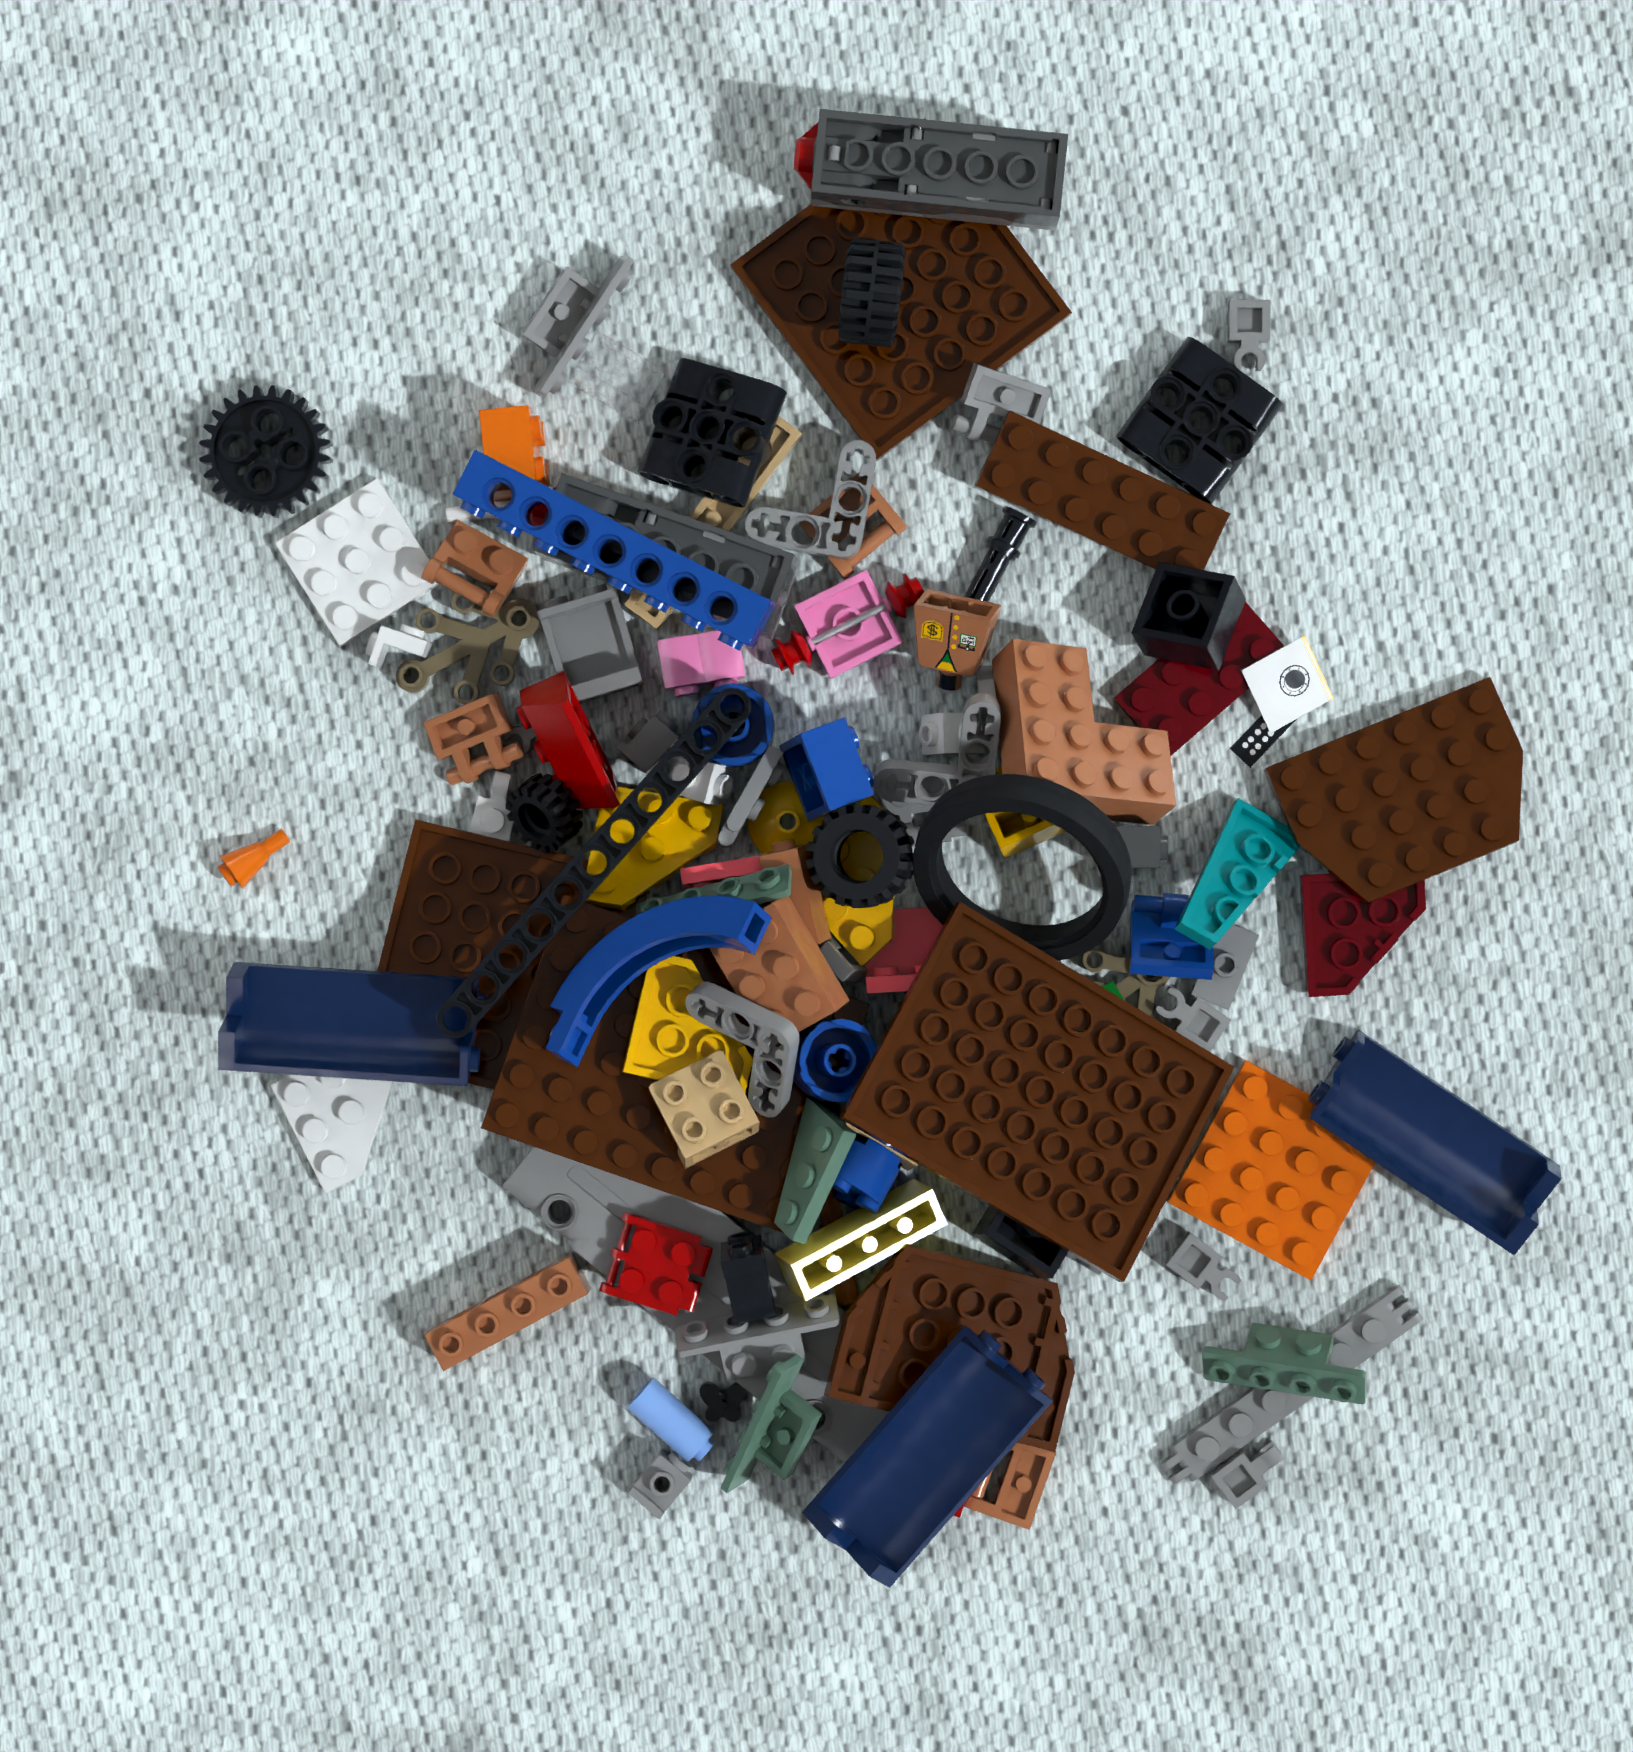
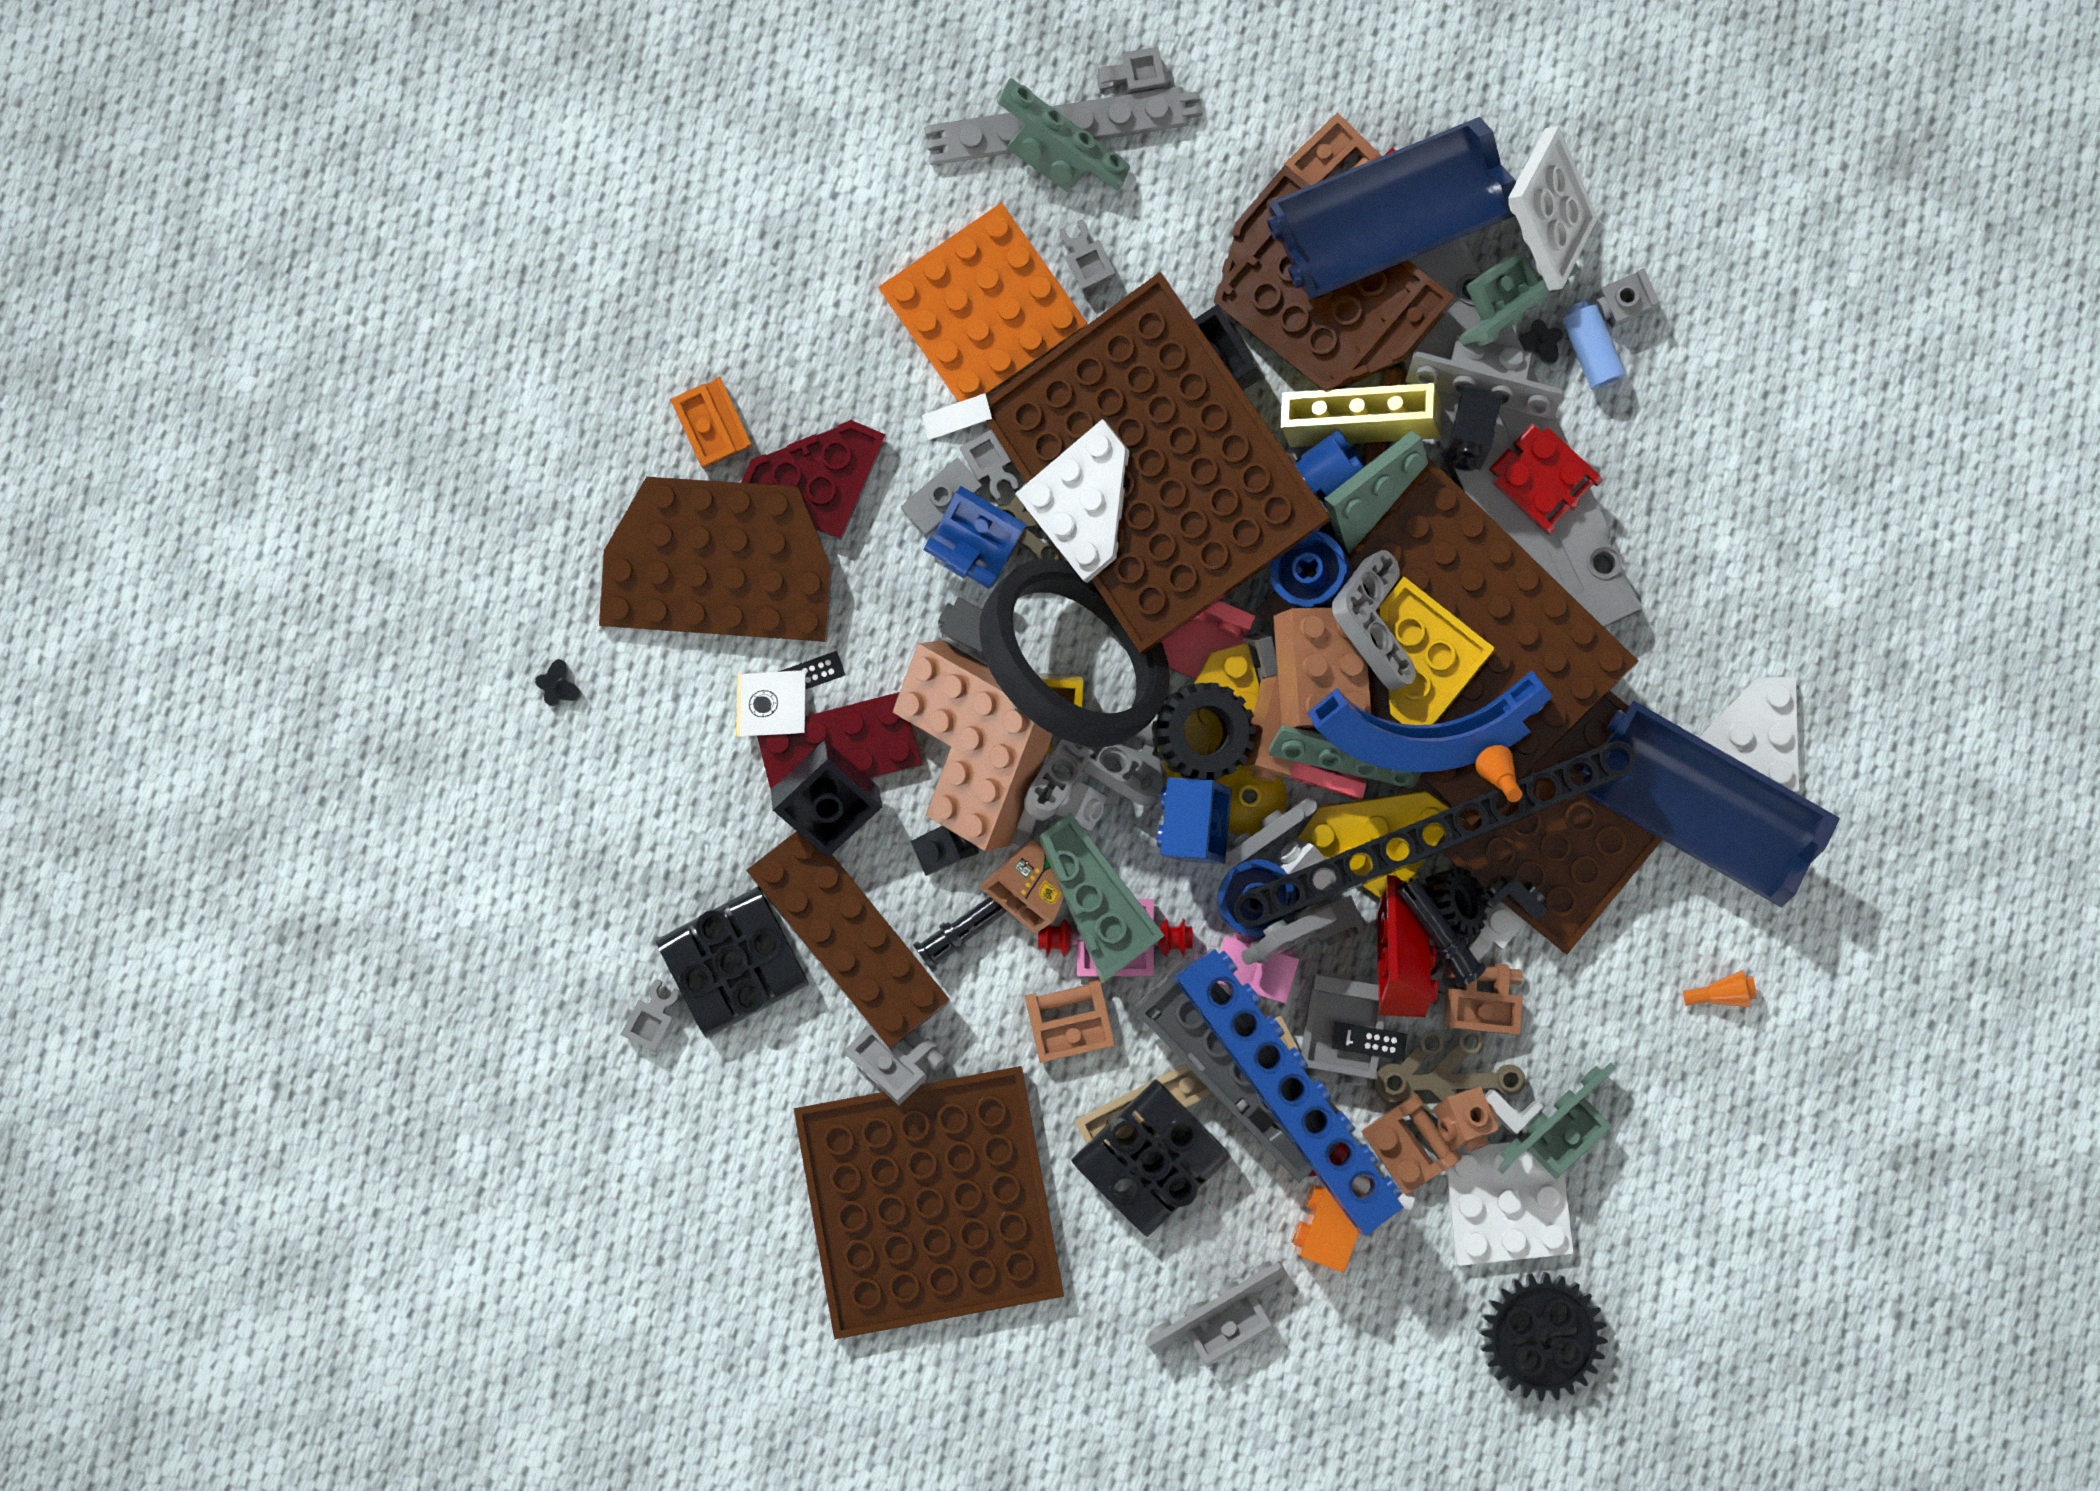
camera: 150 degrees left, 5 degrees down
(333, 648) = (1567, 1133): none -> sand green bracket
(433, 613) = (1466, 1120): none -> nougat brick
(478, 852) = (1527, 897): none -> black bracket
(507, 1311) = (1687, 501): nougat brick -> none
(528, 768) = (1450, 945): none -> black pin
(561, 646) = (1369, 1041): none -> black sticker
(564, 954) = (1498, 768): none -> orange cone
(689, 697) = (1289, 937): none -> light grey plate
(704, 1108) = (1441, 585): tan bracket -> none
(774, 1531) = (1552, 208): none -> white plate
(824, 526) = (1095, 1028): light grey beam -> none
(871, 292) = (957, 1205): black tyre -> none
(877, 645) = (1101, 904): none -> sand green wing
(933, 169) = (851, 1286): dark grey piece -> none
(1056, 623) = (941, 849): none -> black bracket
(1088, 1022) = (1082, 499): none -> white plate
(1238, 869) = (891, 567): teal wing -> none
(1248, 1049) = (956, 416): none -> white sticker
(1434, 1141) = (842, 265): dark blue cylinder -> none
(1482, 925) = (711, 422): none -> orange plate
(1501, 601) = (556, 684): none -> black piece

